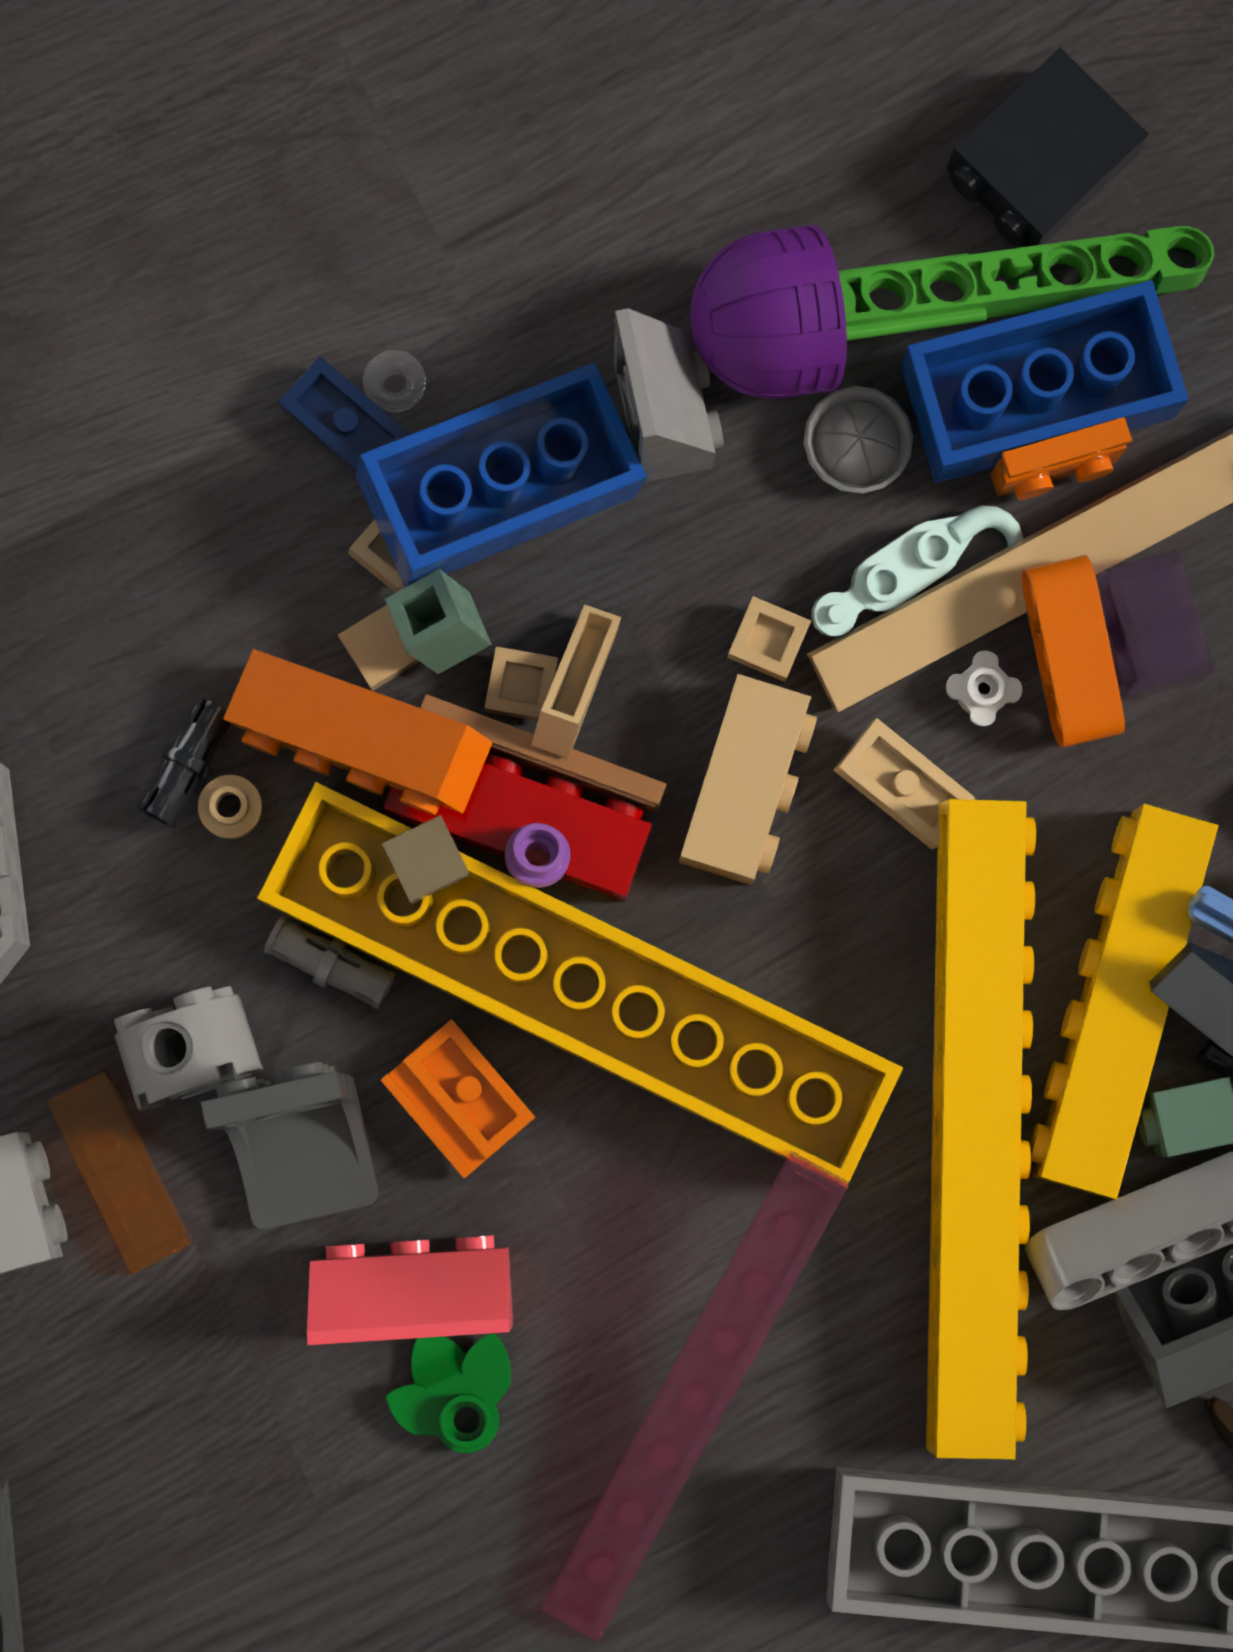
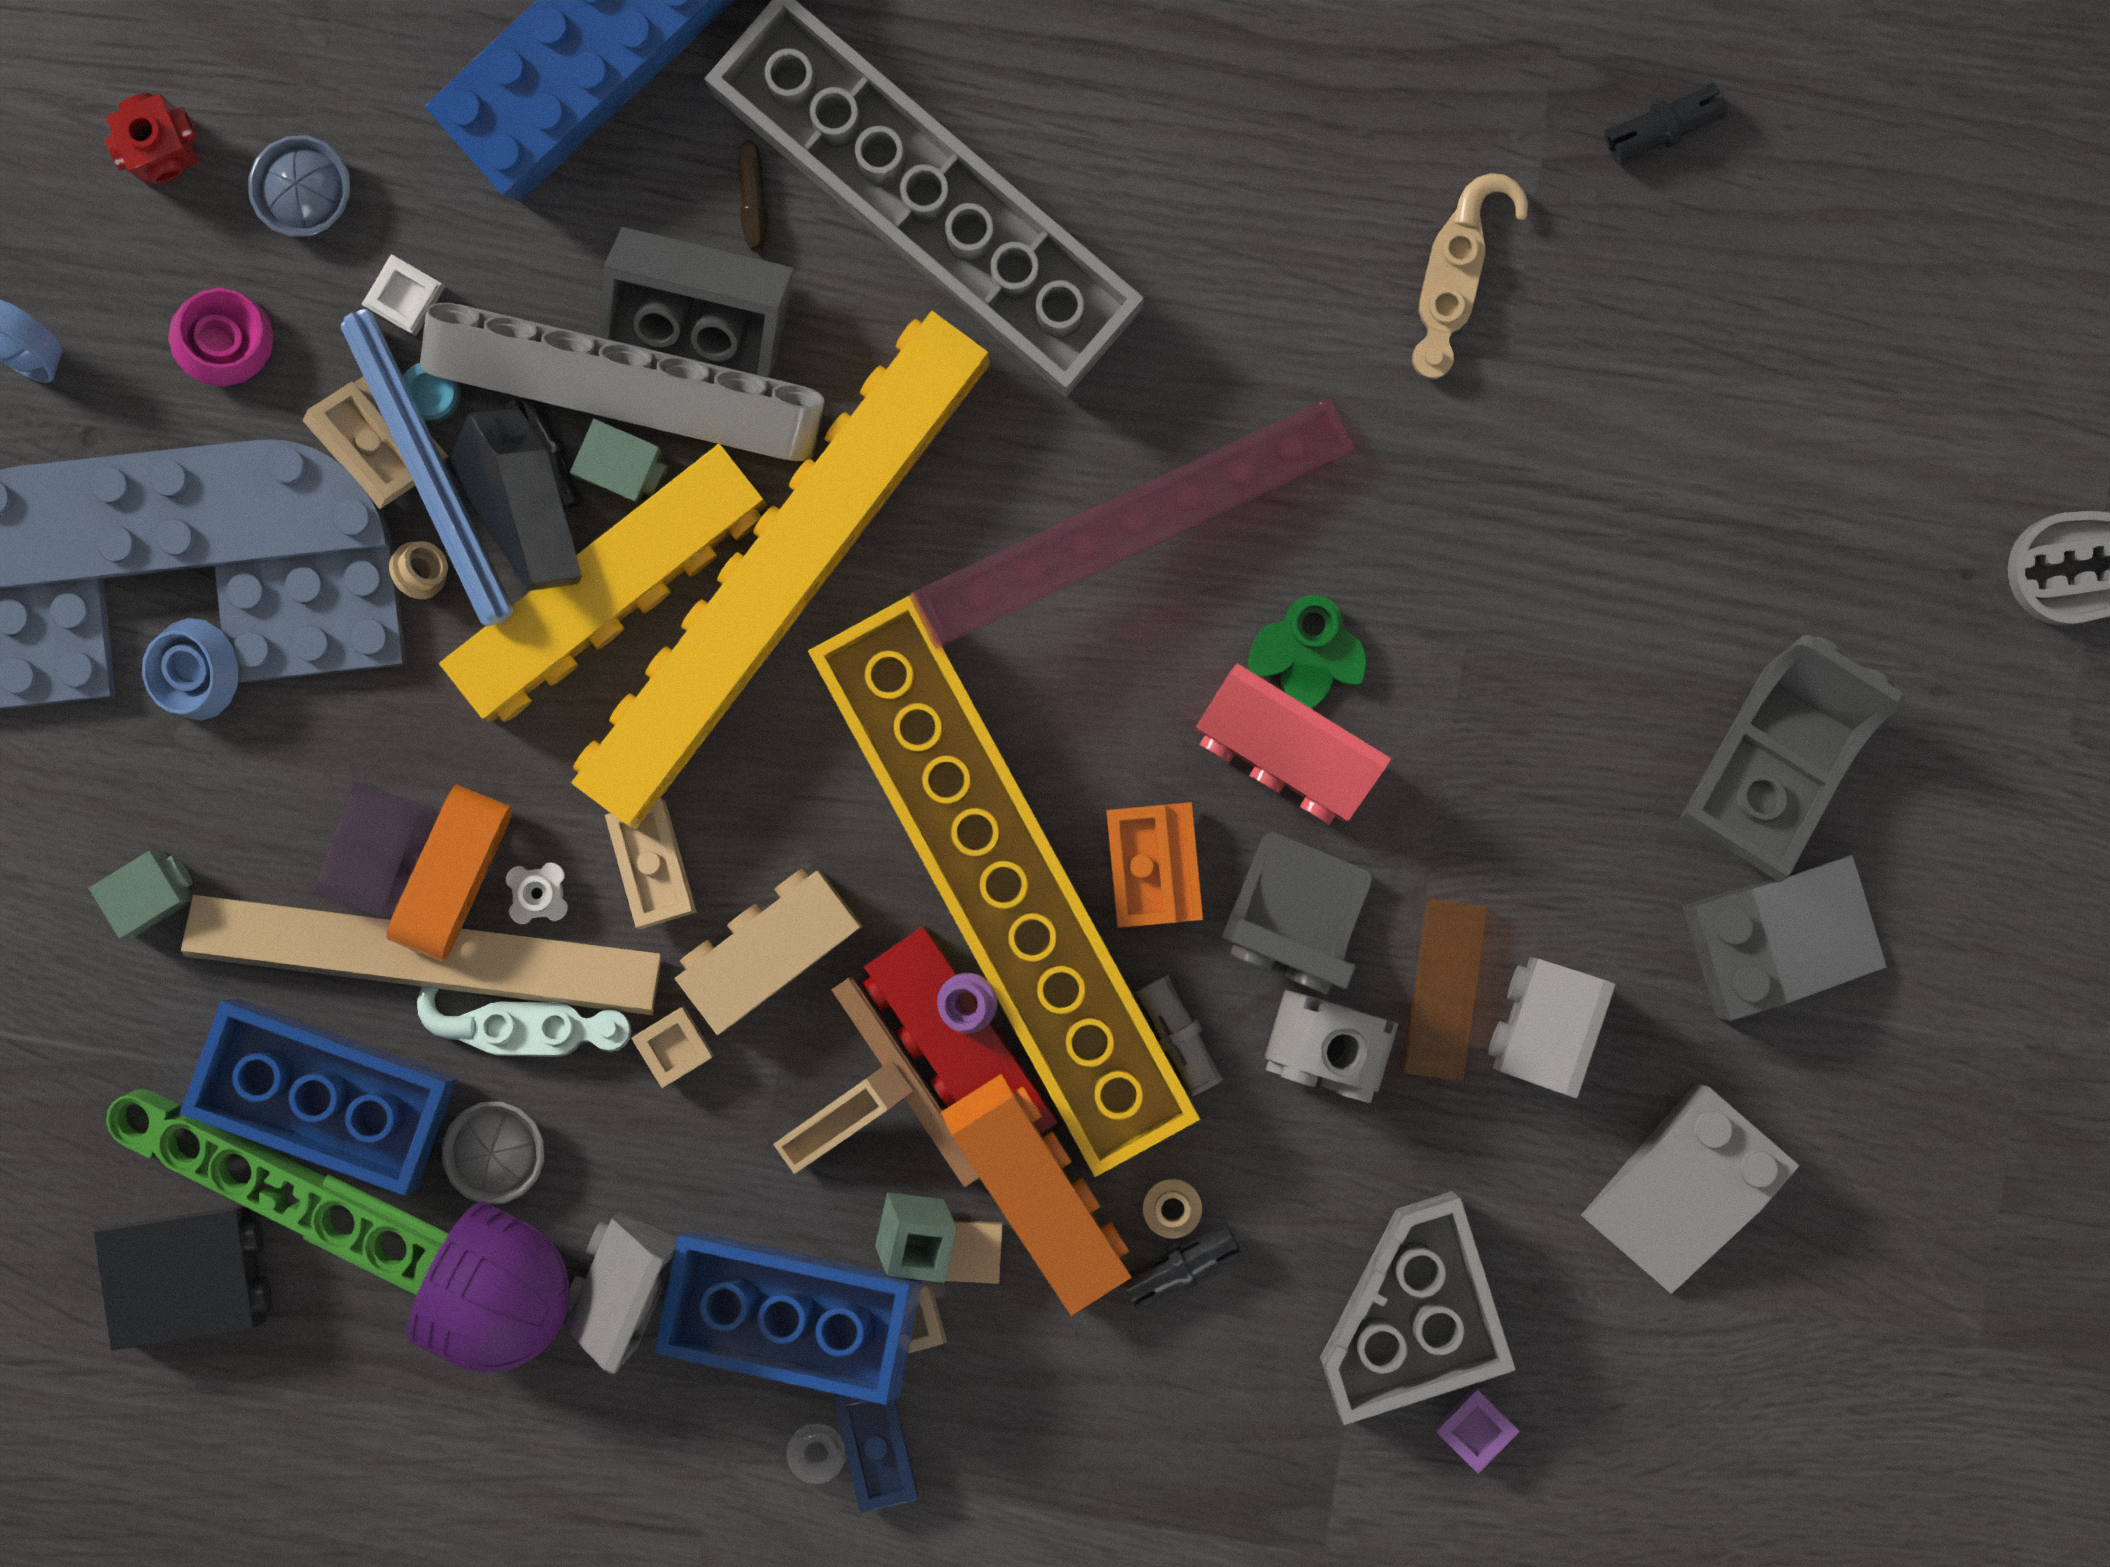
camera: 145 degrees left, 5 degrees up
(426, 859) = (1053, 1058): dark tan tile -> none
(519, 683) = (886, 1146): tan plate -> none
(1081, 453) = (327, 1017): orange plate -> none

